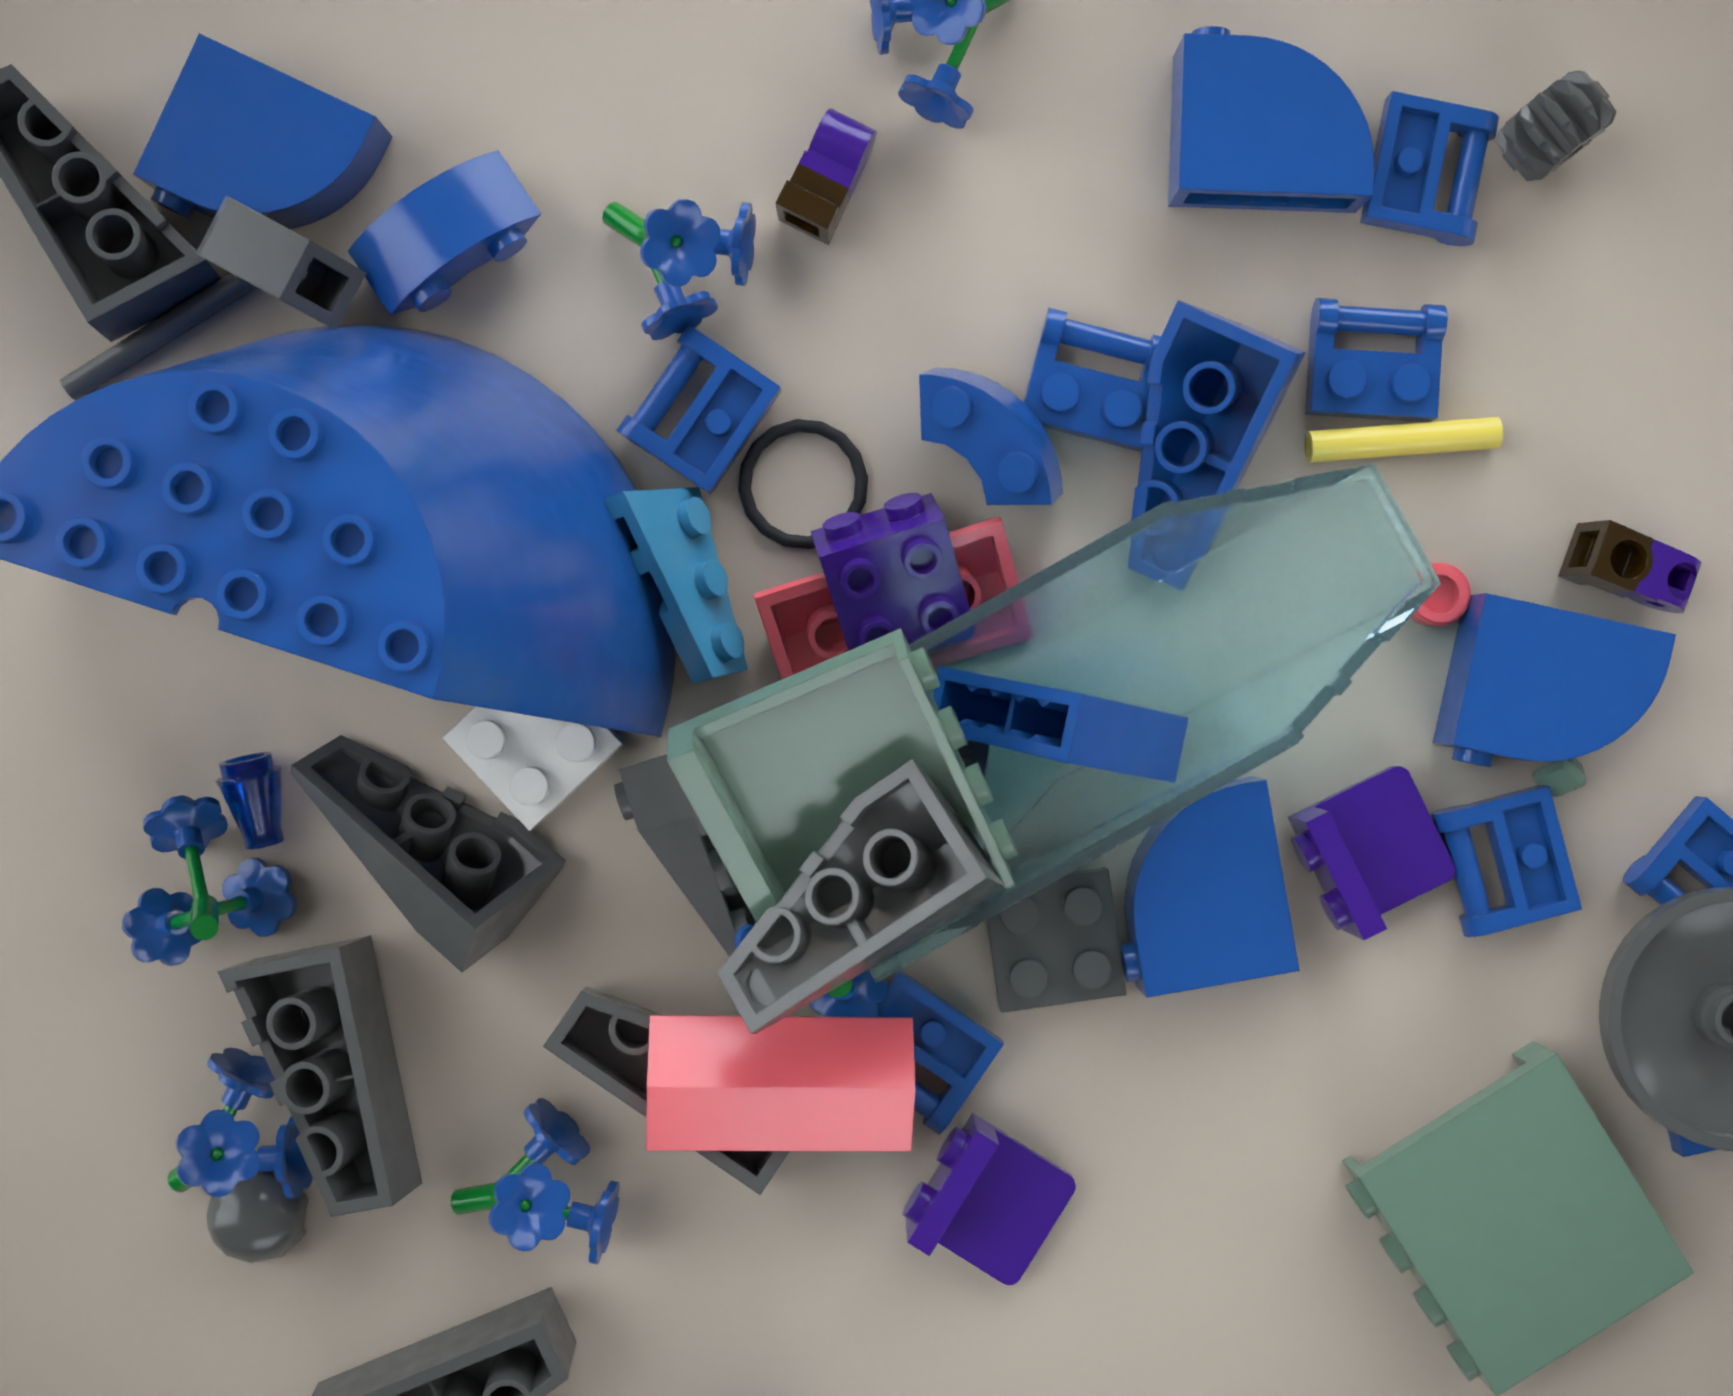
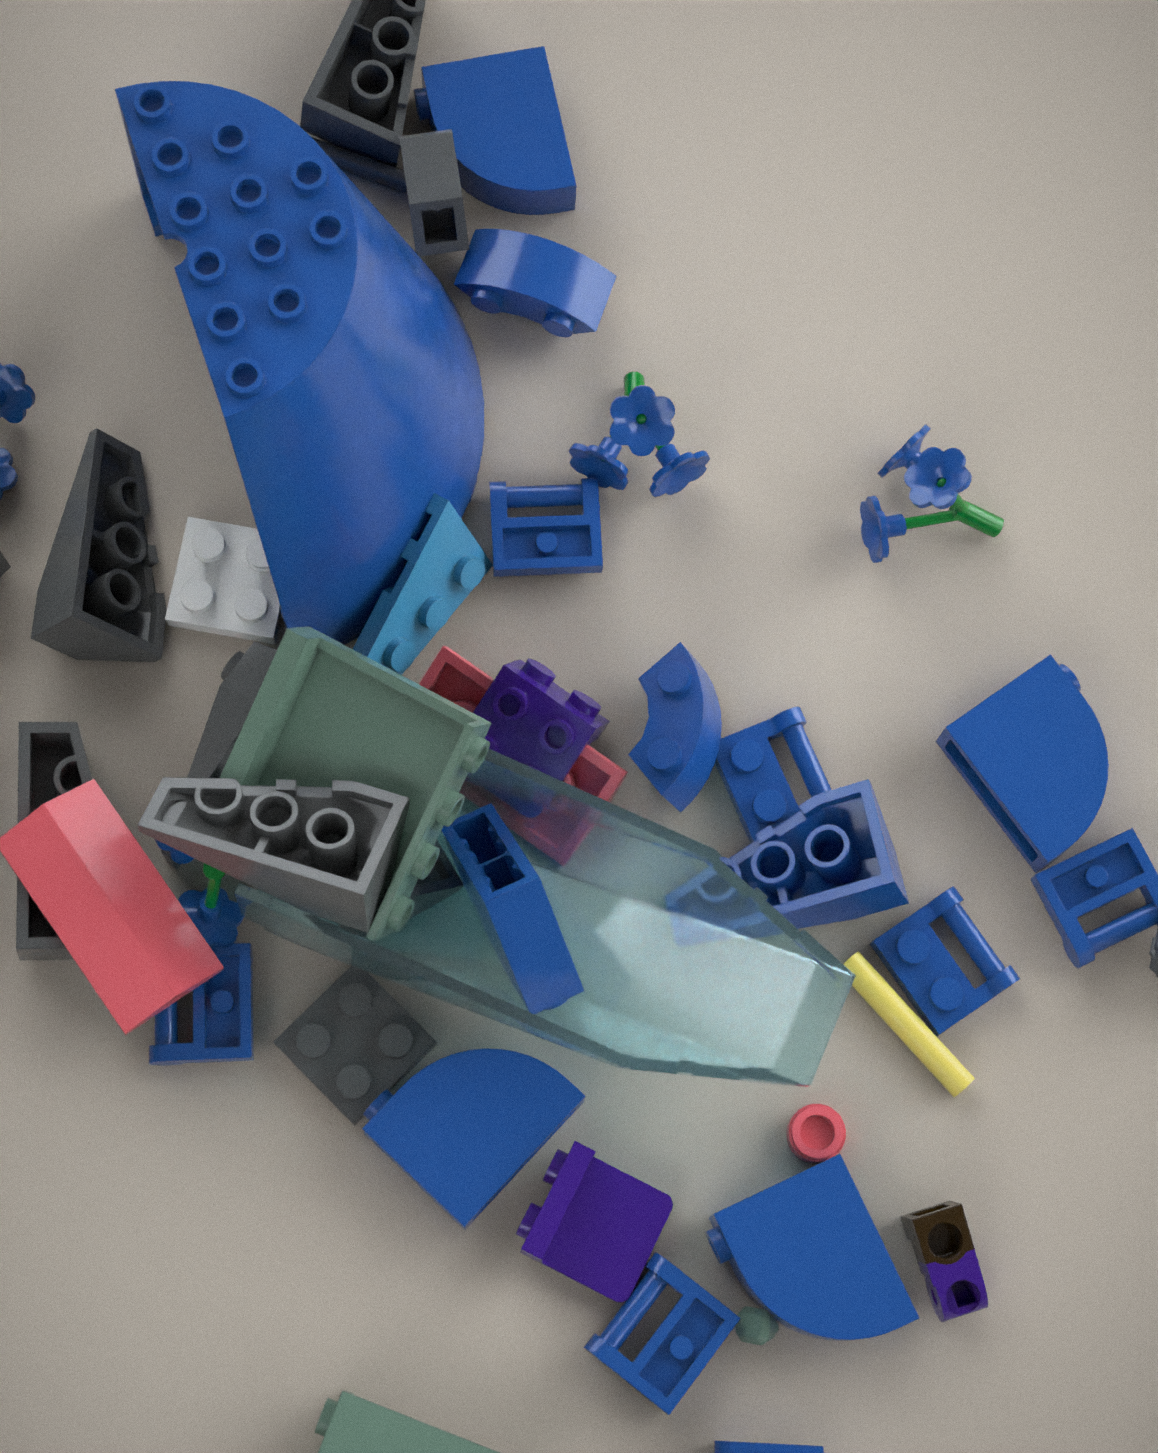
camera: 45 degrees right, 15 degrees down
(254, 797) = (53, 423): clear blue cone -> none
(768, 438) = (561, 587): black piece -> none
(826, 176) = (768, 496): leg -> none
(988, 1201) = (124, 1134): dark purple bracket -> none

